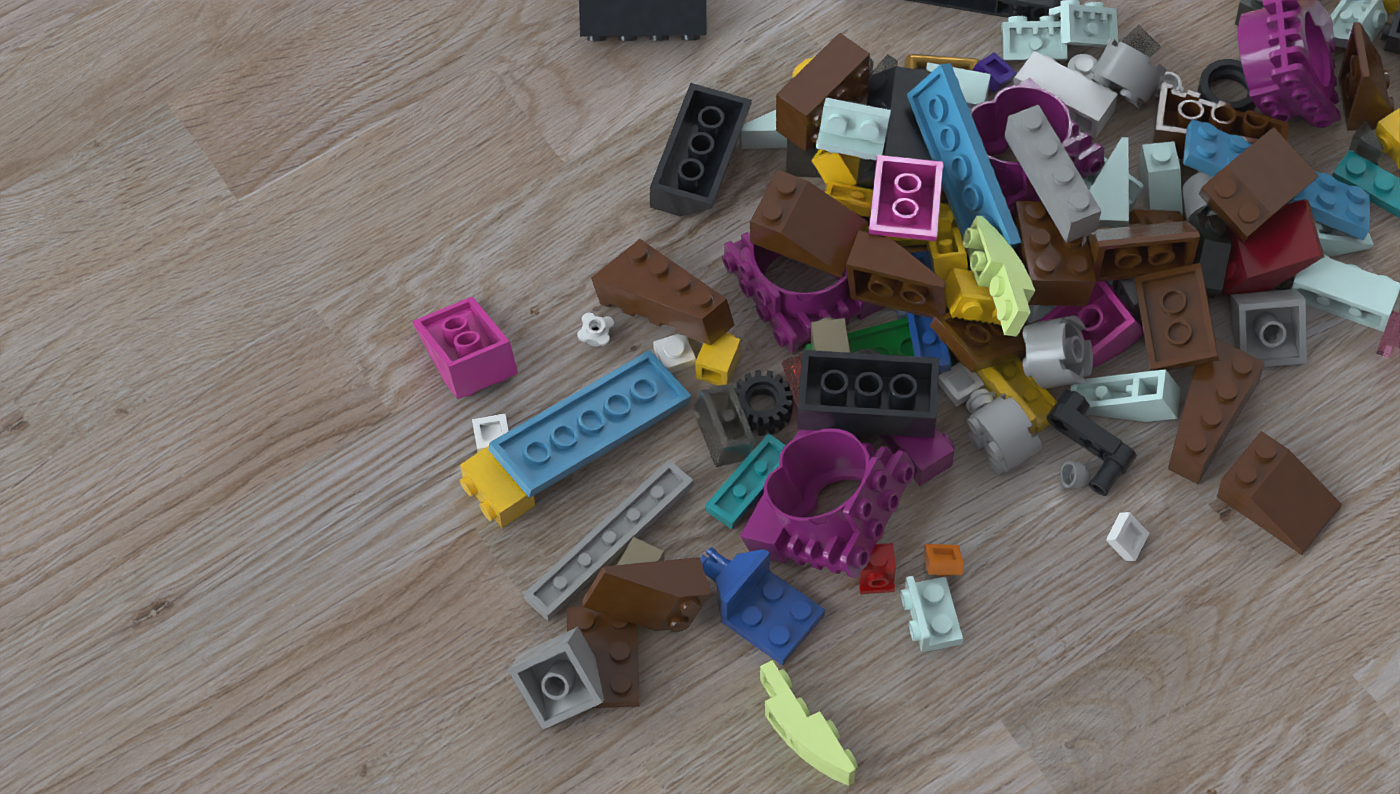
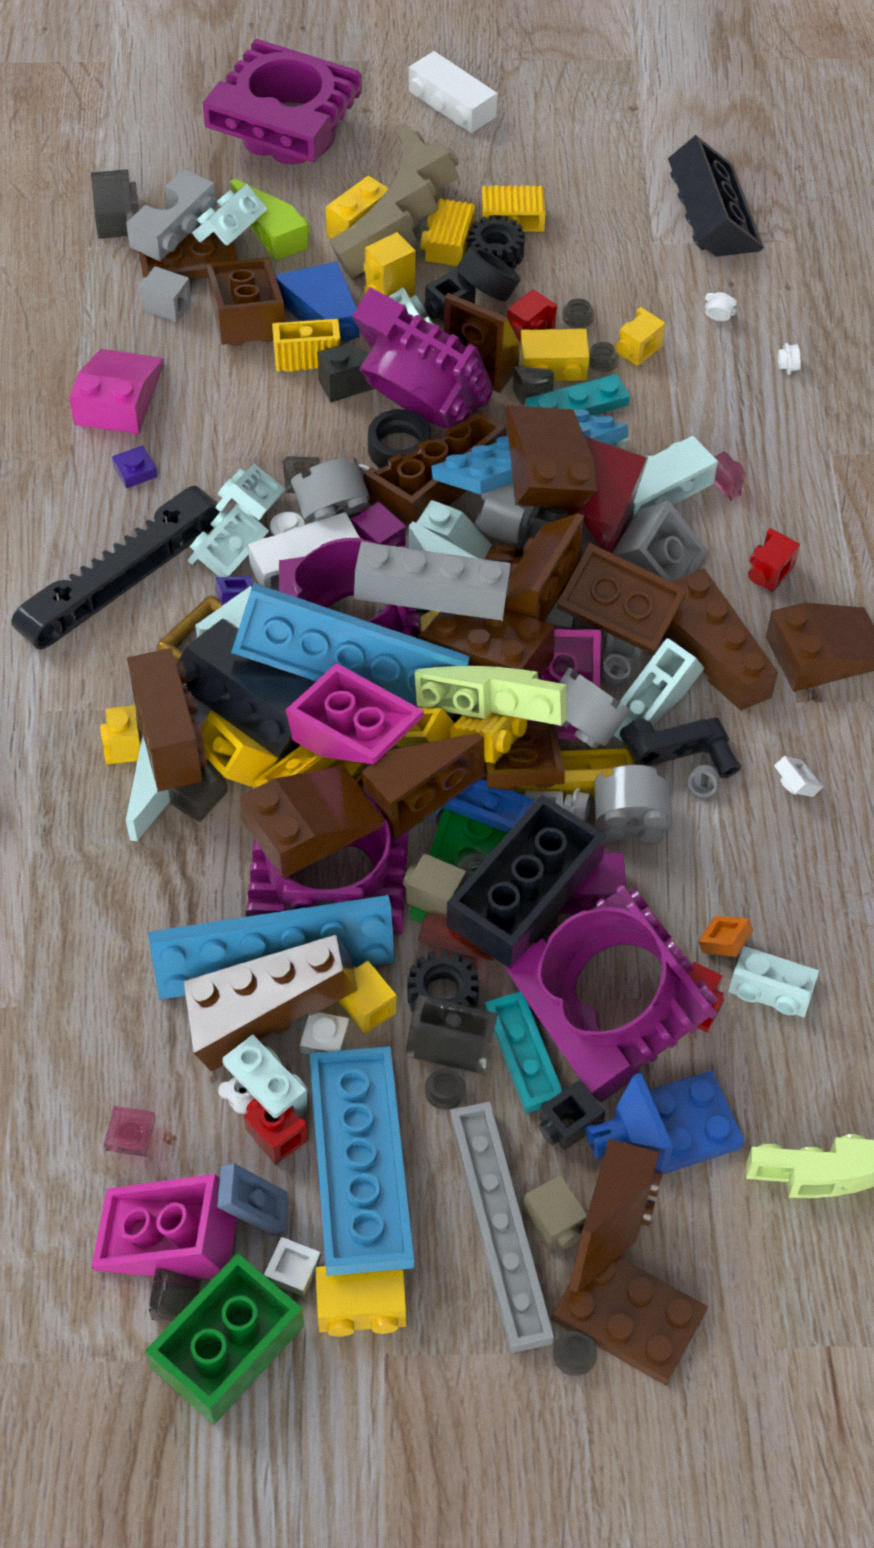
camera: 60 degrees left, 5 degrees down
(412, 422) = (225, 1338): none -> green brick
(424, 379) = (171, 1294): none -> clear smoke slope
(515, 378) = (252, 1199): none -> sand blue plate
(518, 282) = (129, 1131): none -> clear pink plate
(547, 631) = (575, 1353): none -> clear smoke plate
(558, 678) = (642, 1368): light grey slope -> none
(582, 362) = (275, 1138): none -> red brick
(607, 333) = (266, 1078): none -> light aqua bracket
(686, 449) = (444, 1089): none -> clear smoke plate
(698, 151) = (123, 869): black slope -> none
(718, 526) = (573, 1103): none -> black brick
(755, 314) = (204, 948): none -> dark azure plate
(853, 129) = (238, 713): light aqua bracket -> none
(1124, 122) = (380, 526): none -> magenta brick
(1126, 353) = (621, 663): none -> light grey hinge
(1327, 412) = (773, 560): none -> red brick

